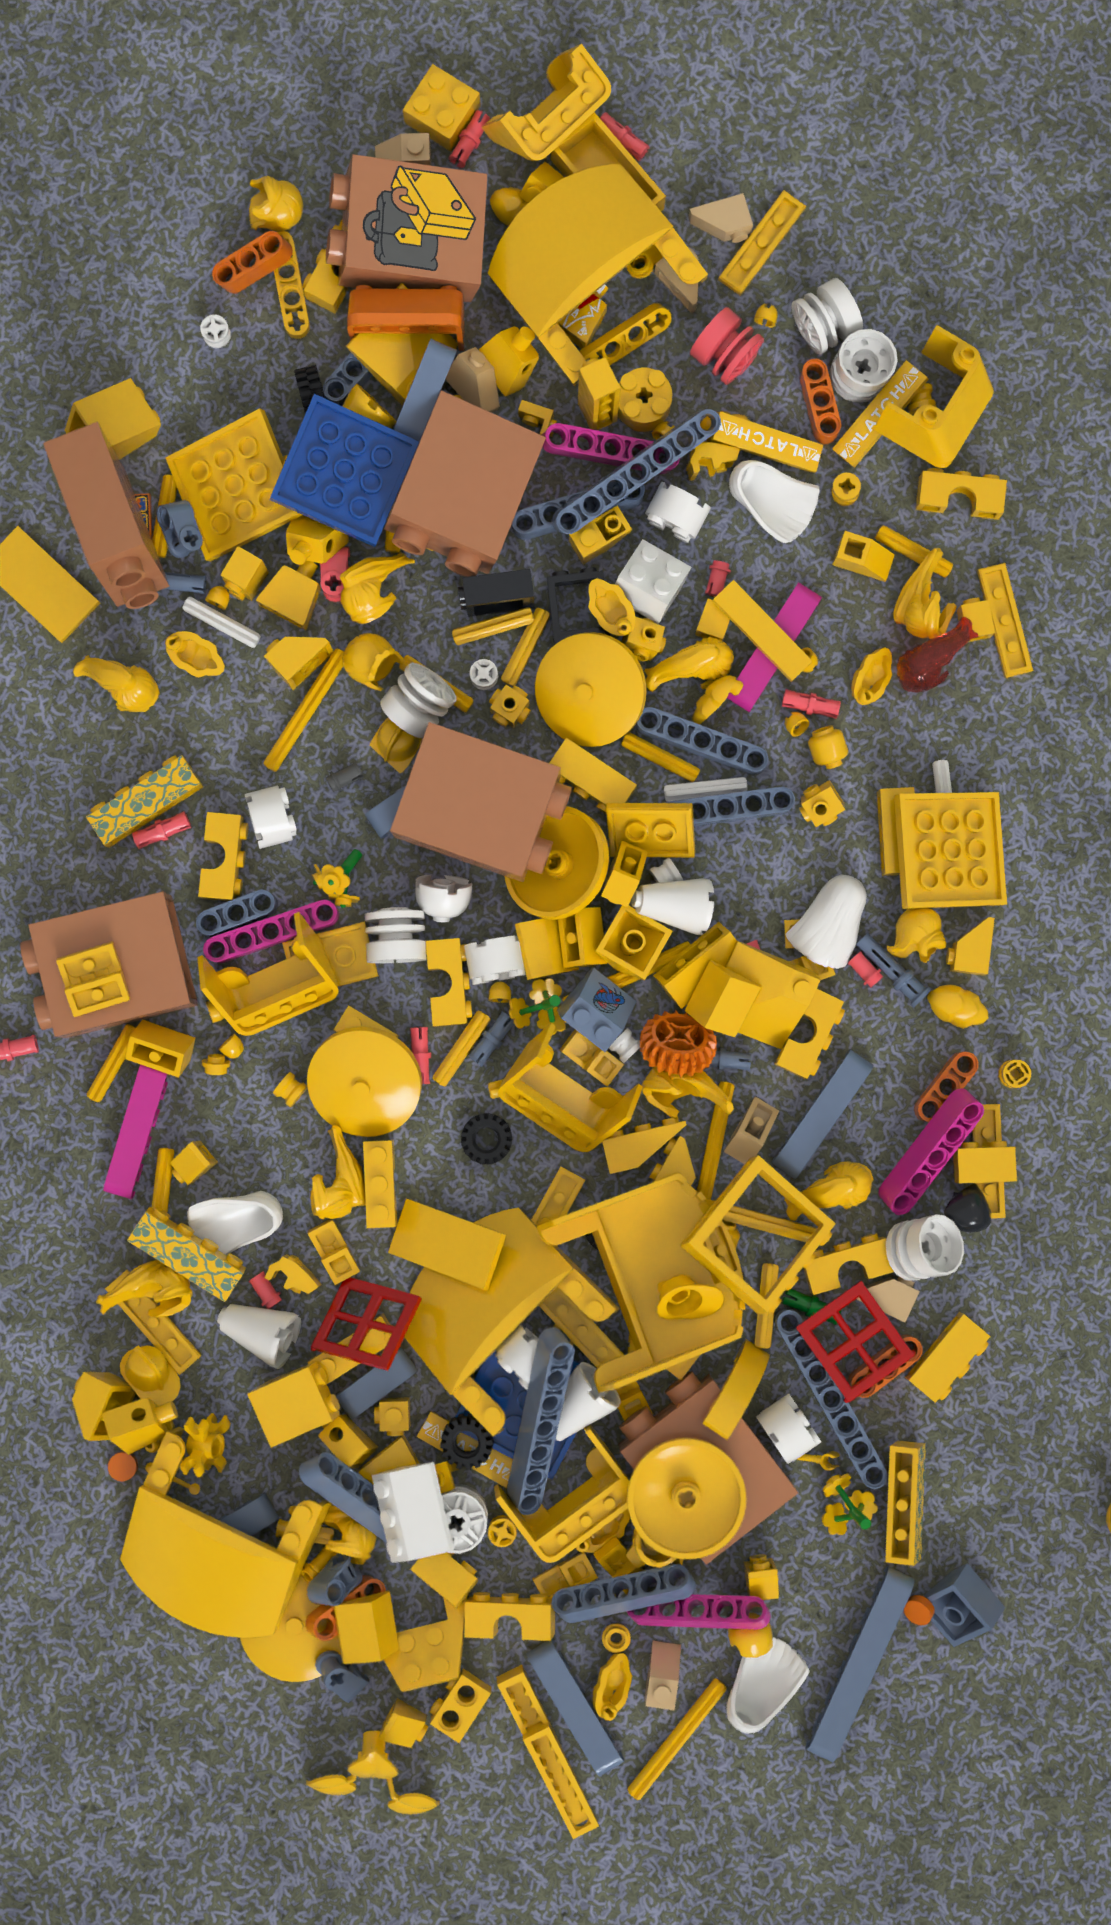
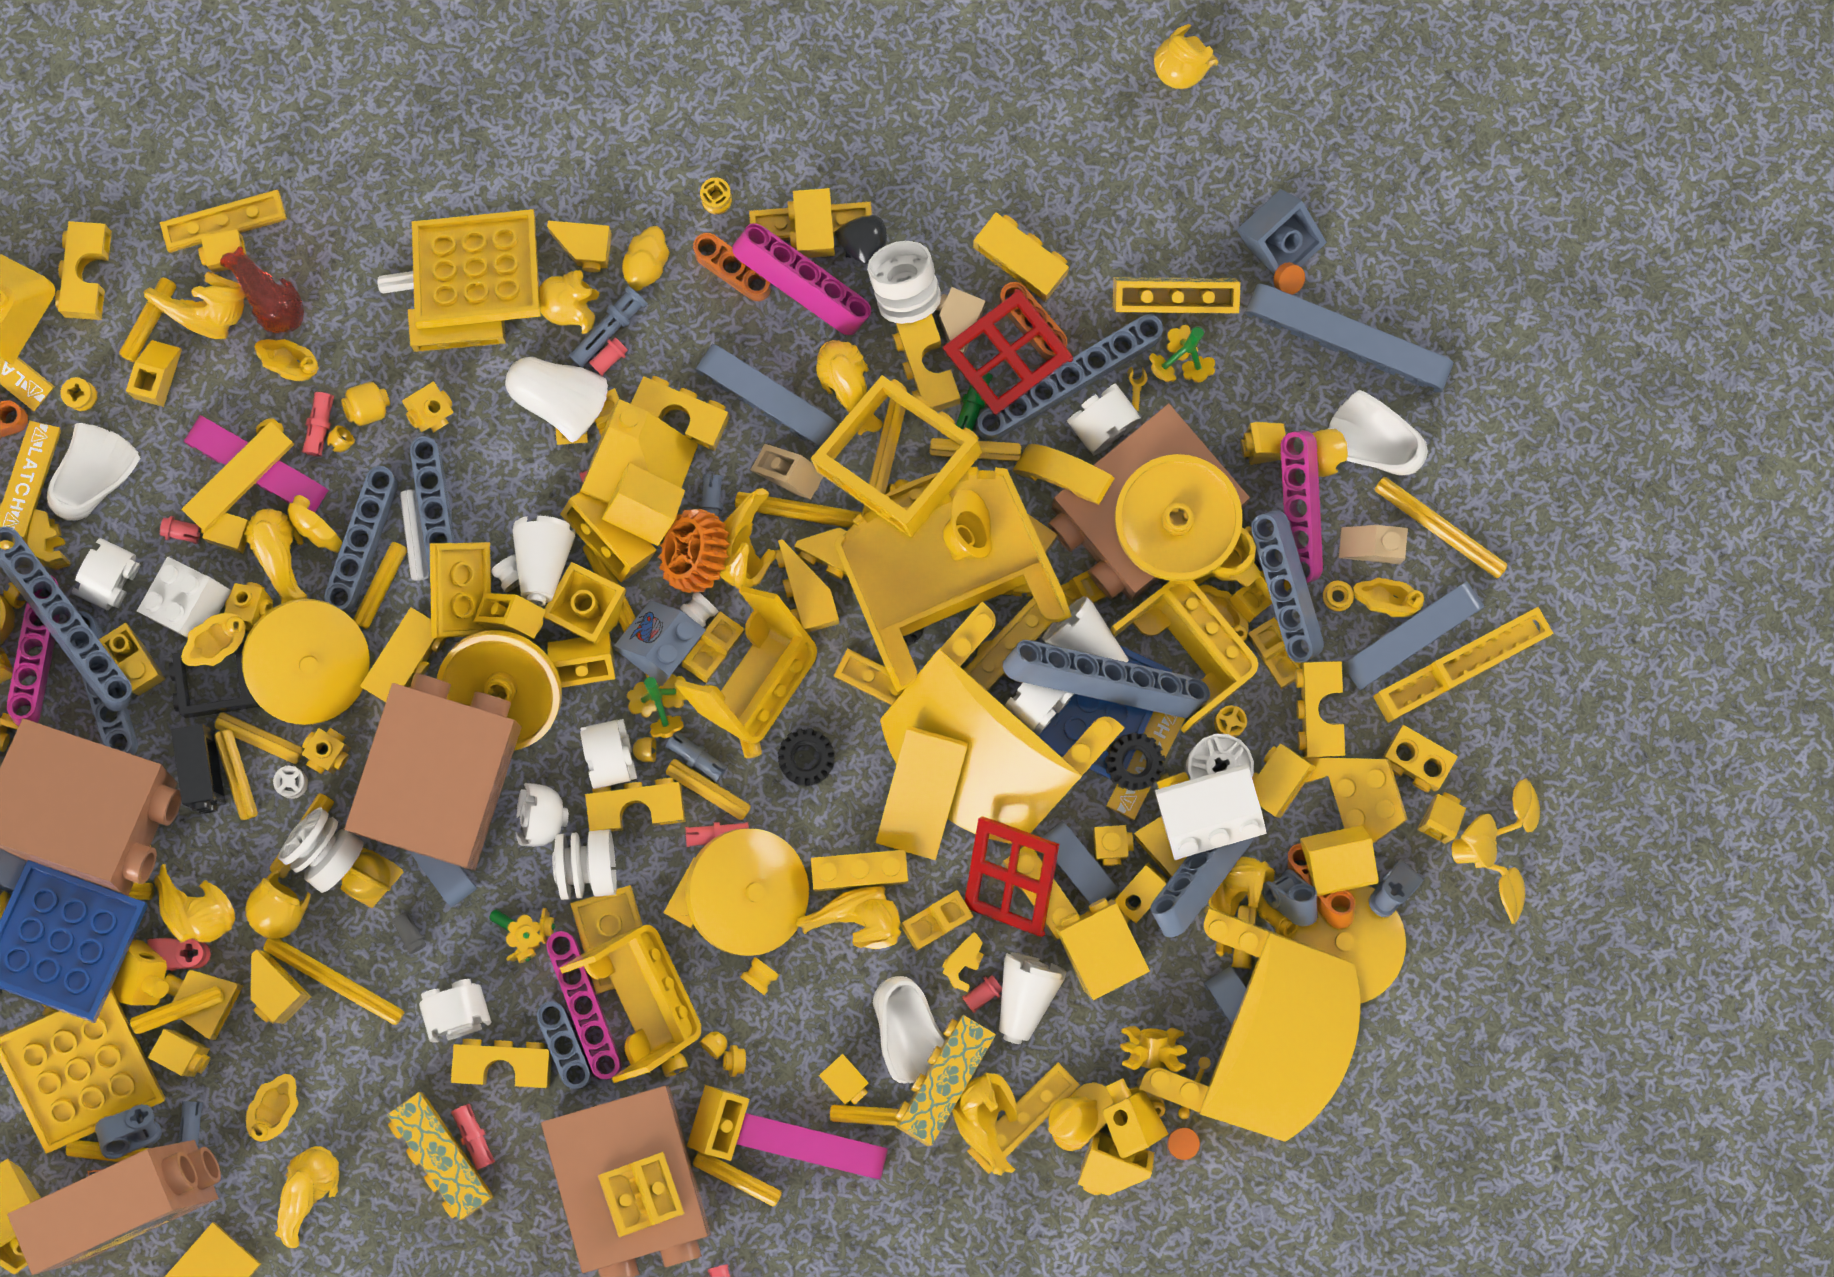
camera: 90 degrees left, 5 degrees down
(218, 595) = (203, 1085): yellow hinge -> none
(221, 622) = (234, 1081): white axle -> none
(281, 571) = (176, 1010): none -> yellow axle
(541, 948) = (594, 703): yellow slope -> none

